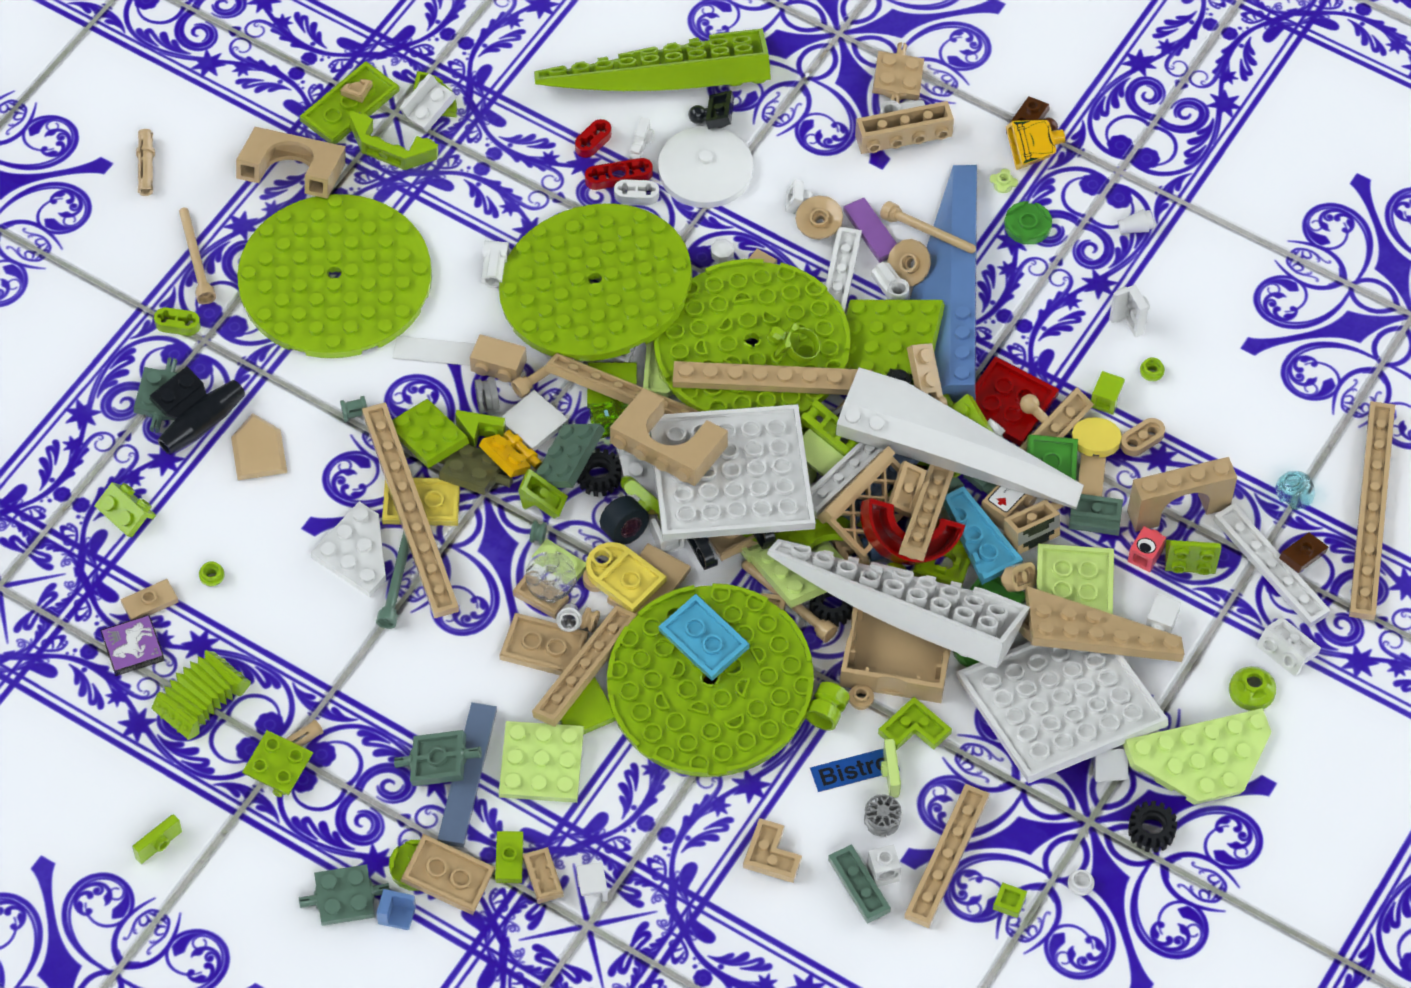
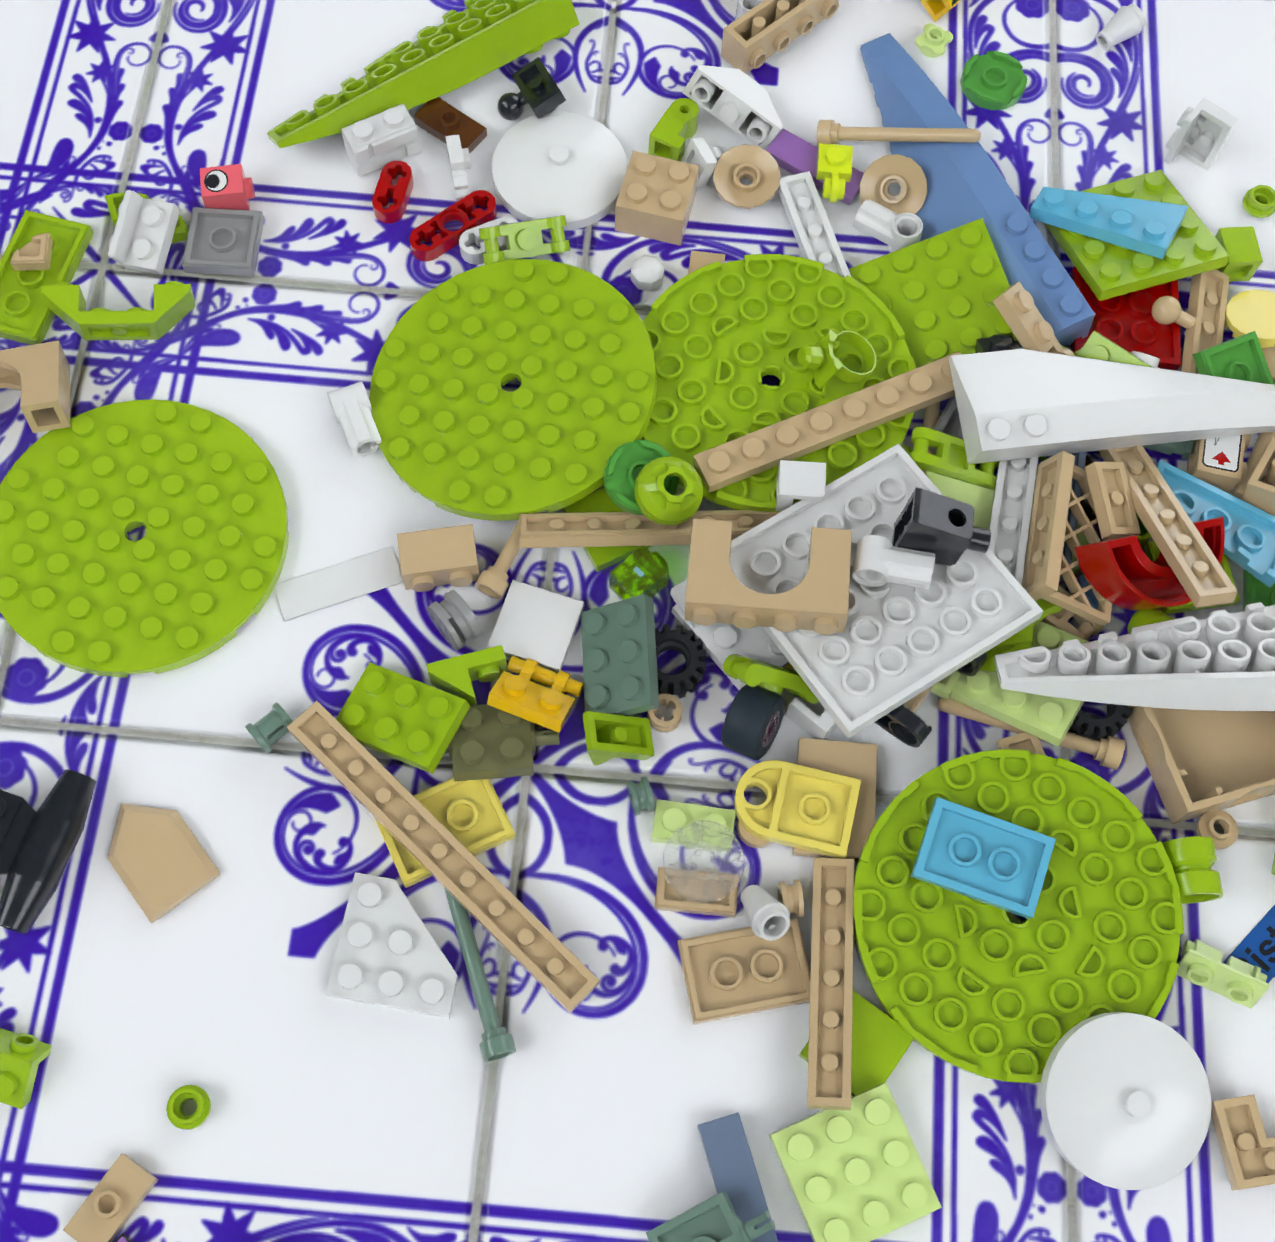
camera: 30 degrees left, 10 degrees up
(473, 127) = (223, 241): none -> light grey plate
(490, 97) = (226, 187): none -> coral brick
(579, 505) = (666, 726): none -> tan bush
(602, 103) = (381, 139): none -> white brick
(636, 361) = (624, 468): none -> bright green tile
(637, 380) = (657, 502): none -> lime piece
(651, 107) = (445, 120): none -> reddish brown plate
(655, 199) = (524, 239): none -> lime plate
(710, 794) = (1125, 1100): none -> white dish
(724, 399) = (799, 481): none -> white panel
(738, 457) = (881, 563): none -> white piece
(753, 207) = (656, 198): none -> tan brick
(777, 451) = (939, 527): none -> black torso
(794, 167) = (673, 129): none -> lime leg
(804, 760) = (1235, 981): none -> yellowish green hinge
(839, 167) = (736, 102): none -> white slope
(878, 233) = (835, 168): none -> neon yellow plate
(1035, 339) = (1113, 219): none -> medium azure wing
(1045, 352) = (1118, 270): none -> lime plate

